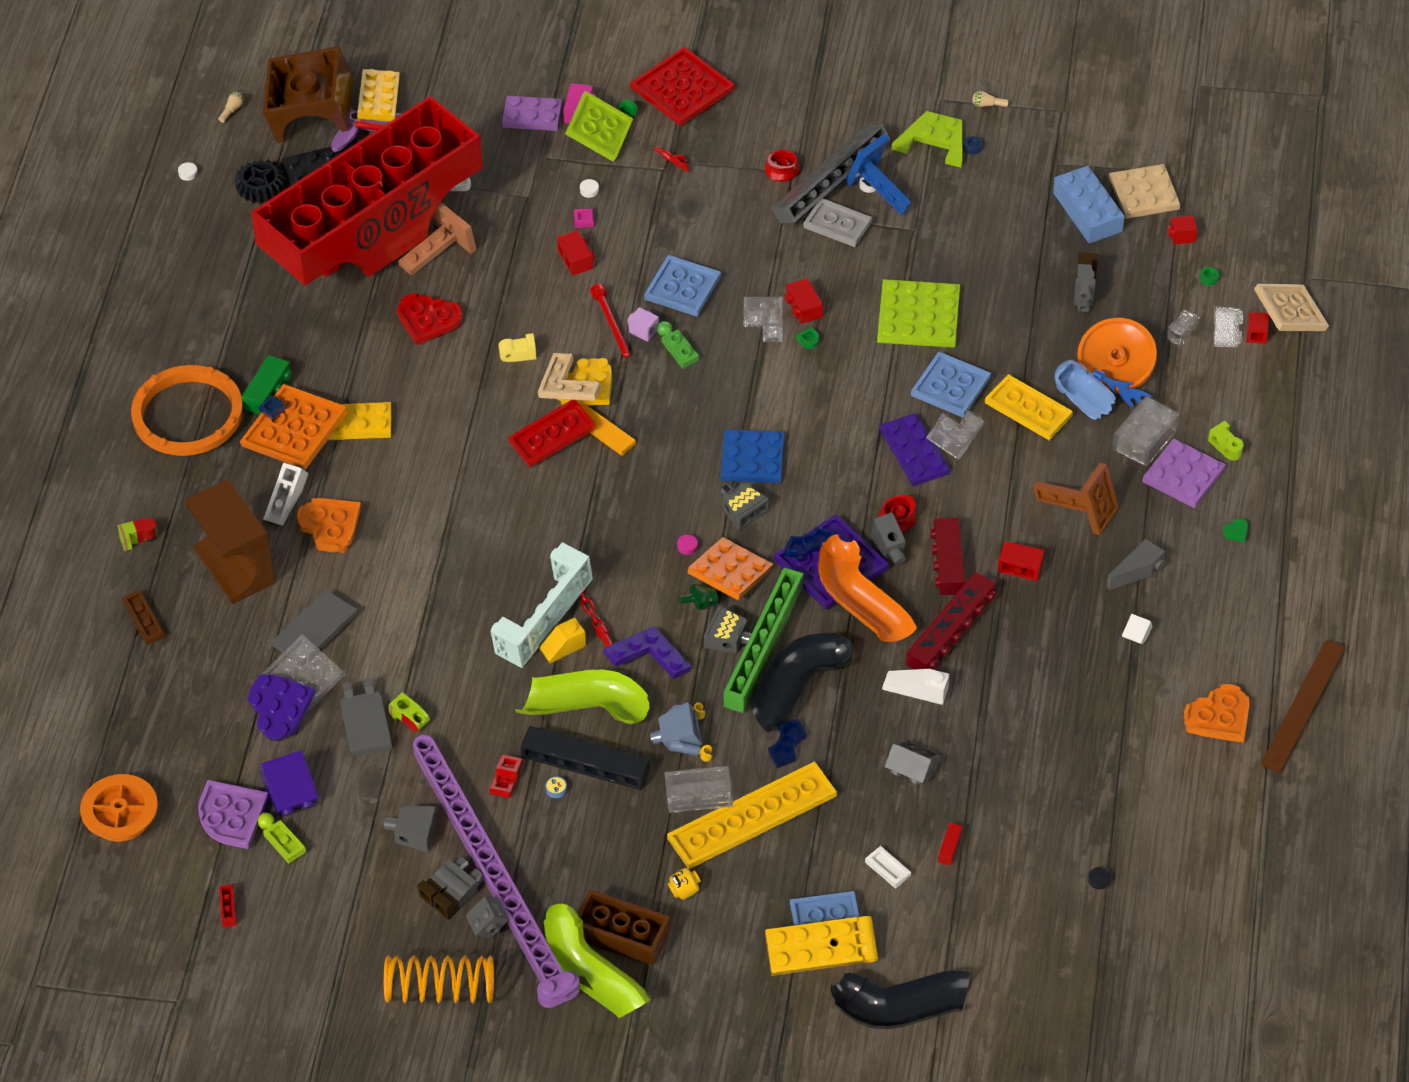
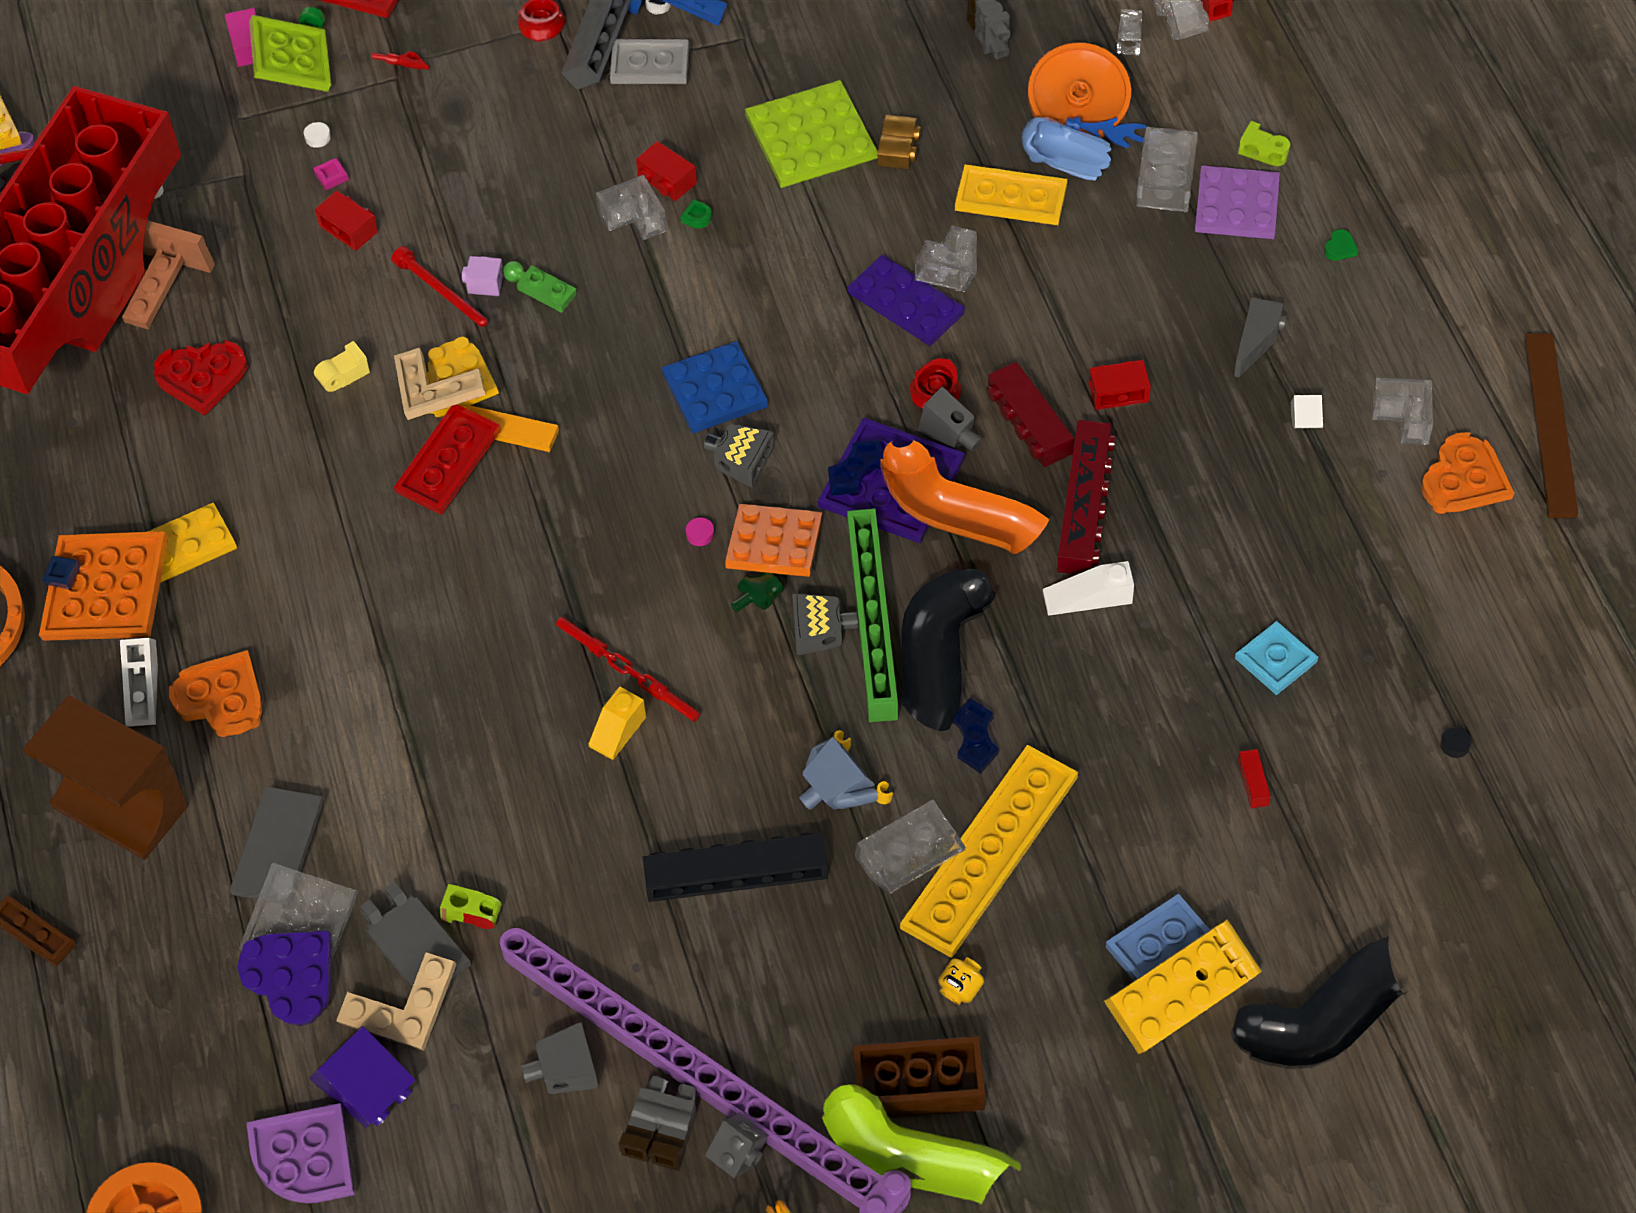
camera: 25 degrees left, 5 degrees up
(266, 382) = (34, 544): green brick -> none
(281, 837) = (391, 1158): lime plate -> none
(340, 765) = (416, 1021): none -> tan plate
(506, 776) = (644, 937): red slope -> none
(519, 643) = (557, 751): light aqua plate -> none
(532, 113) = (191, 69): medium lavender plate -> none
(556, 787) = (718, 923): tile -> none
(588, 689) = (687, 777): lime animal -> none
(648, 641) = (729, 676): dark purple plate -> none
(682, 285) = (504, 209): medium blue plate -> none
(888, 867) = (1196, 842): white tile -> none
(912, 761) = (1146, 691): slope -> none
(950, 384) = (902, 203): medium blue plate -> none
(972, 341) = (898, 142): none -> pearl gold brick
(1015, 777) = (1276, 657): none -> medium azure tile
(1095, 497) = (1168, 278): dark orange piece -> none
(1207, 651) = (1405, 402): none -> clear brick

